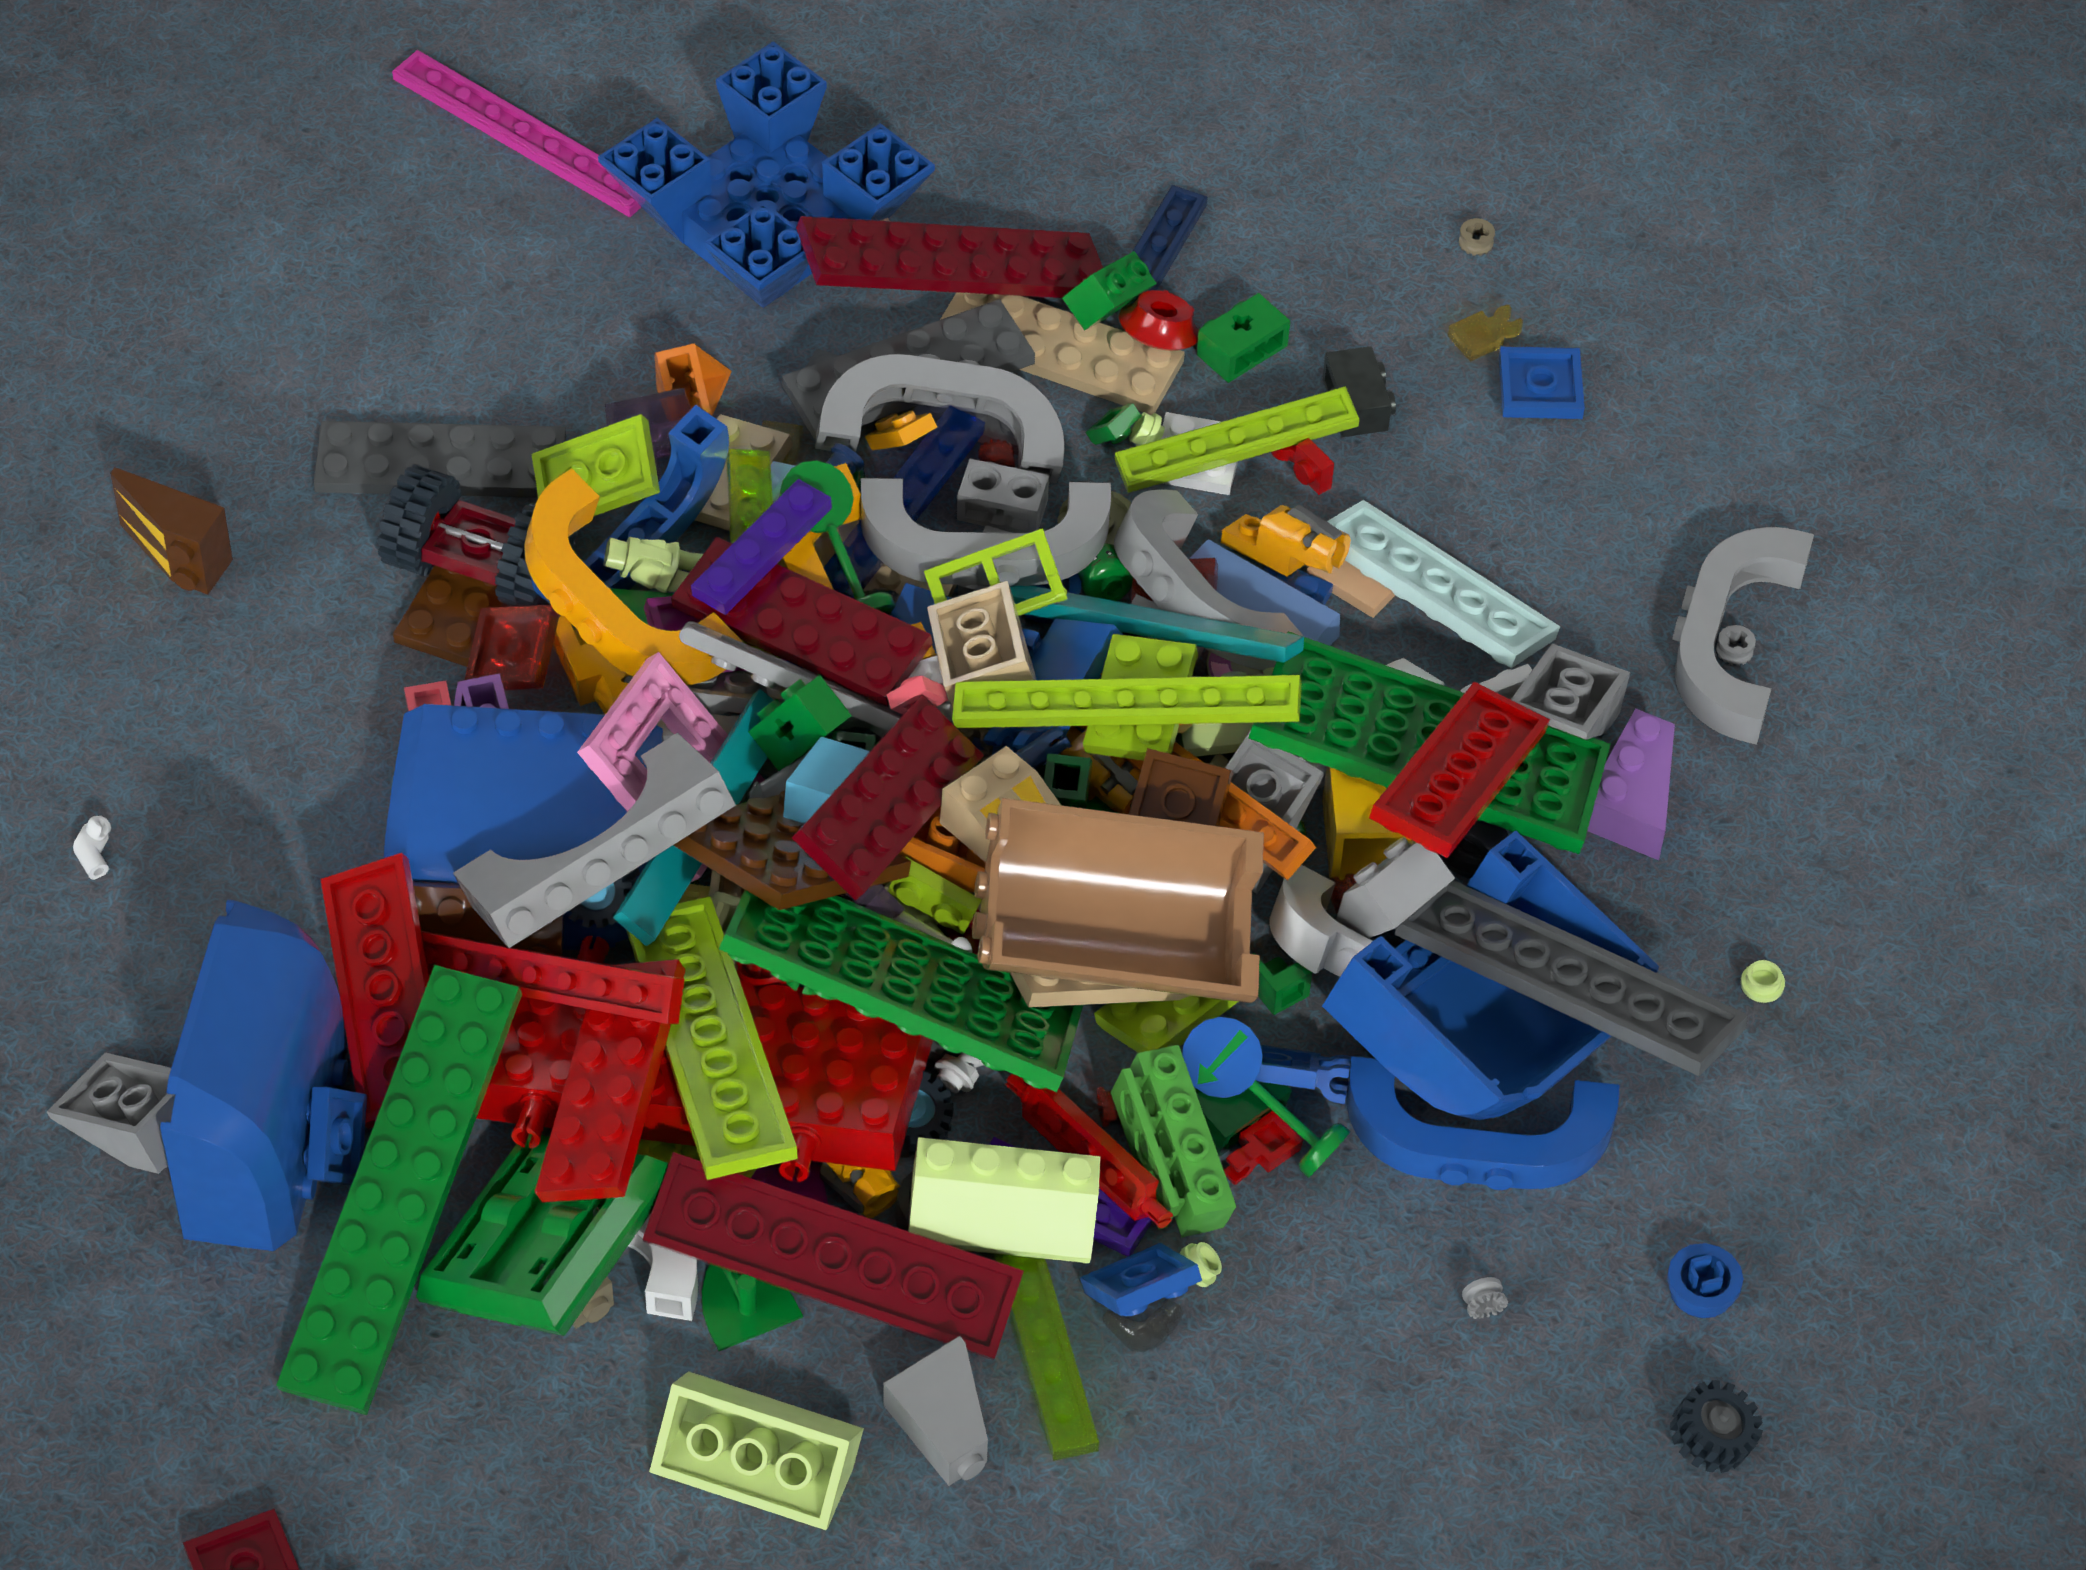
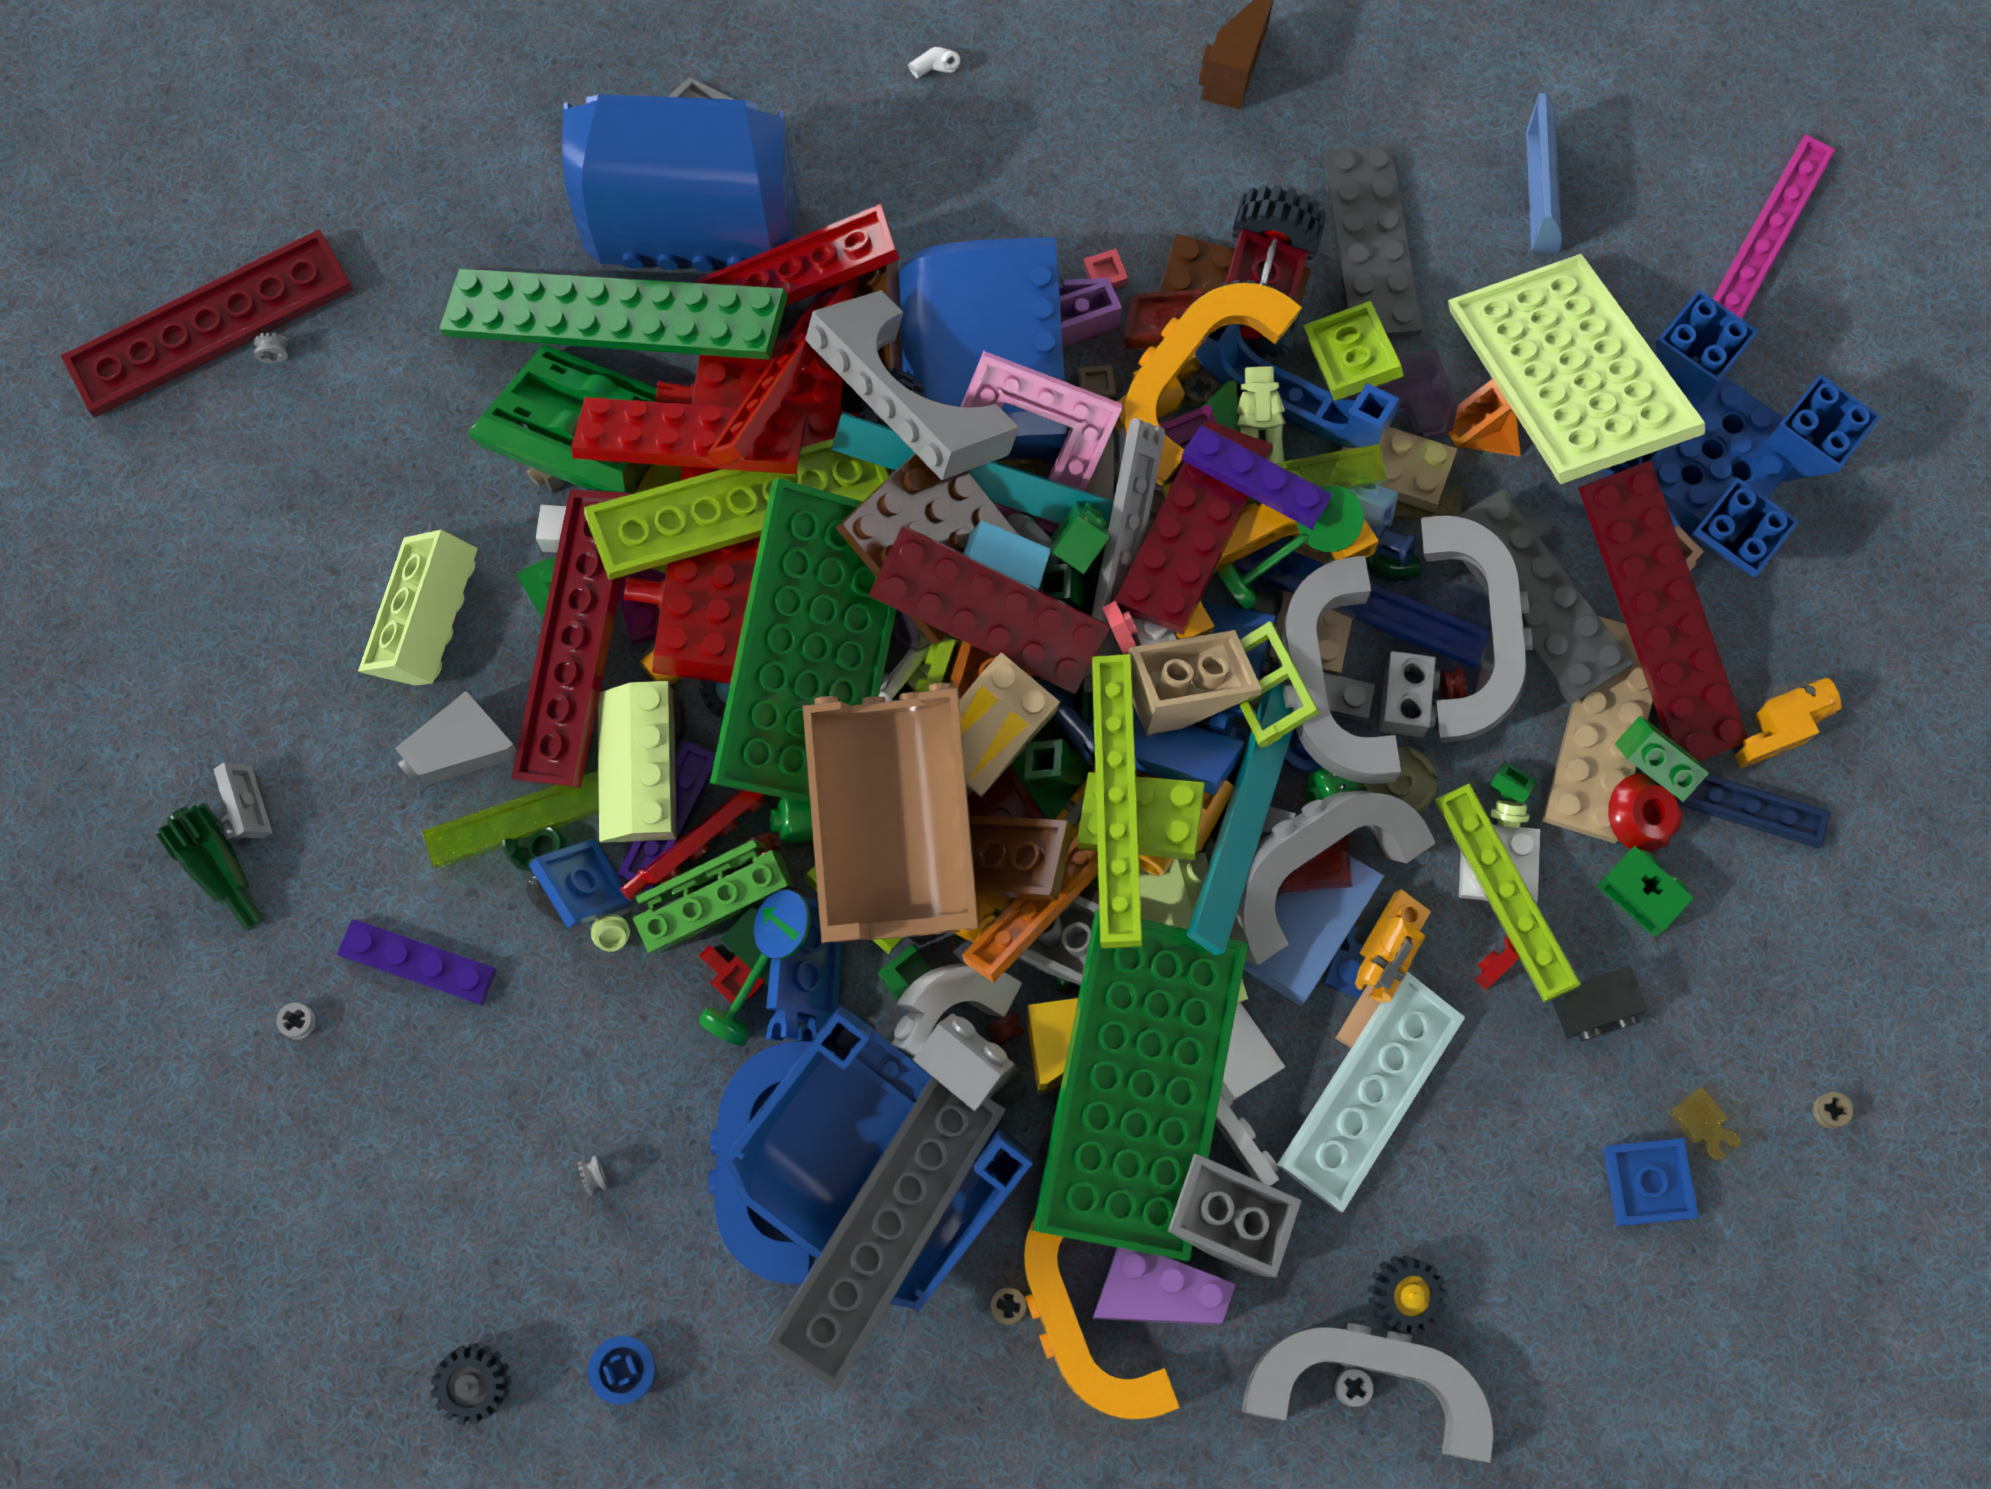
camera: 85 degrees right, 20 degrees up
(335, 1135) = (654, 256): blue plate -> none
(402, 287) = (1543, 178): none -> medium blue slope
(665, 275) = (1575, 369): none -> yellowish green plate
(900, 430) = (1459, 596): light orange plate -> none
(1072, 196) = (1790, 718): none -> light orange plate
(1088, 1064) = (792, 822): none -> green head
(1088, 1335) = (525, 850): none -> dark green hair
(1213, 1476) = (416, 962): none -> dark purple plate
(1459, 769) = (1087, 1106): red plate -> none
(1646, 583) = (1407, 1294): none -> black wheel
(1647, 913) = (1018, 1298): none -> dark tan bush
(1675, 872) = (1063, 1339): none -> light orange arch
(1762, 981) = (956, 1420): yellowish green plate -> none

